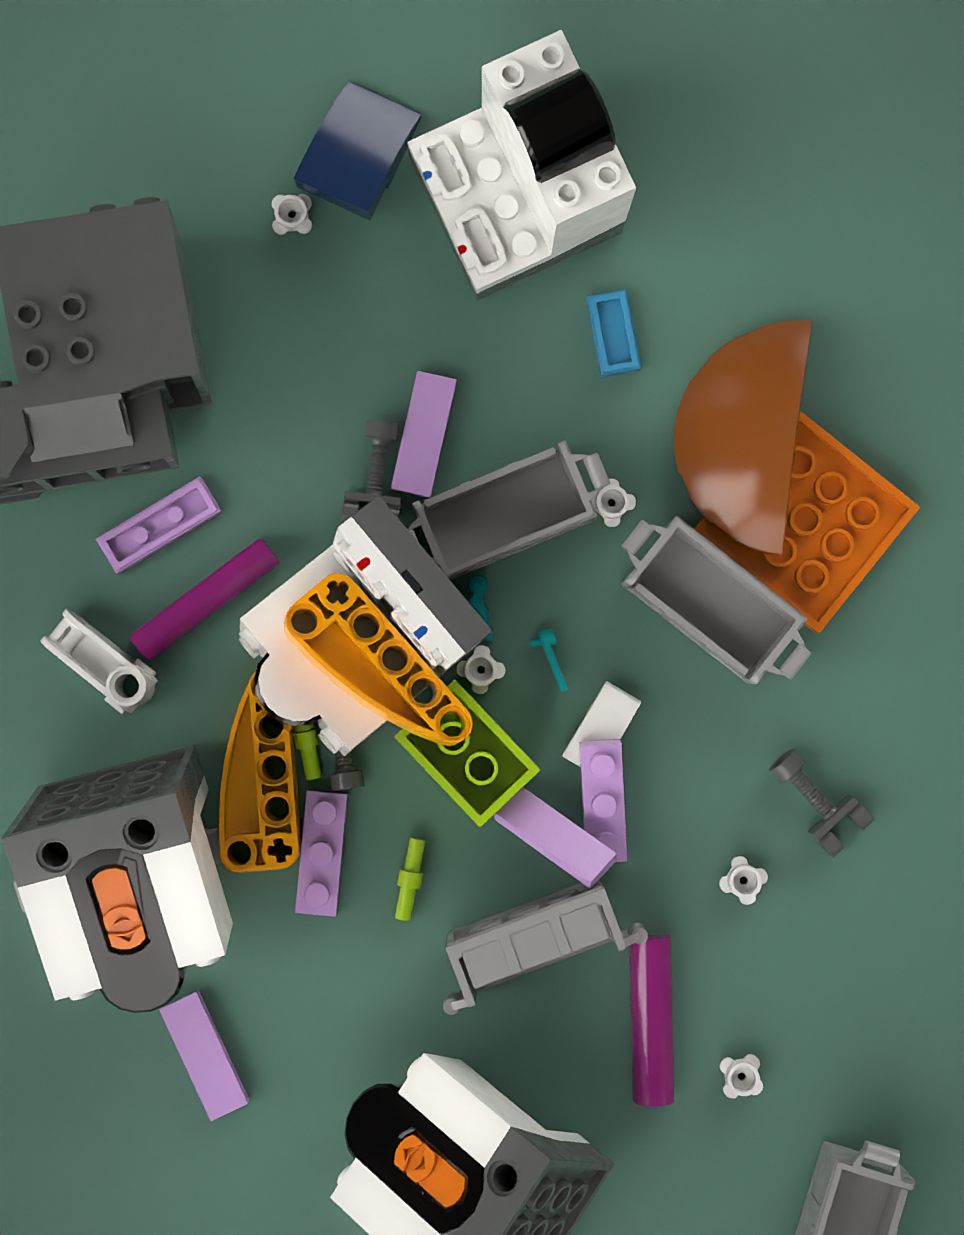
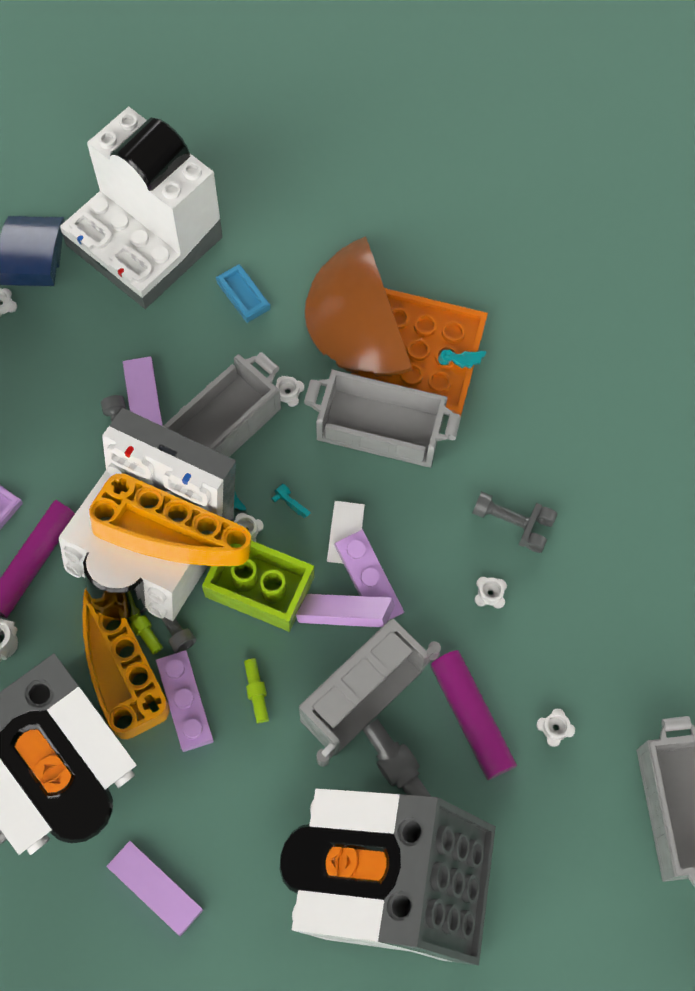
camera: 25 degrees left, 20 degrees down
(536, 1041) = (395, 761): none -> dark grey pin
(854, 564) = (465, 359): none -> teal piece

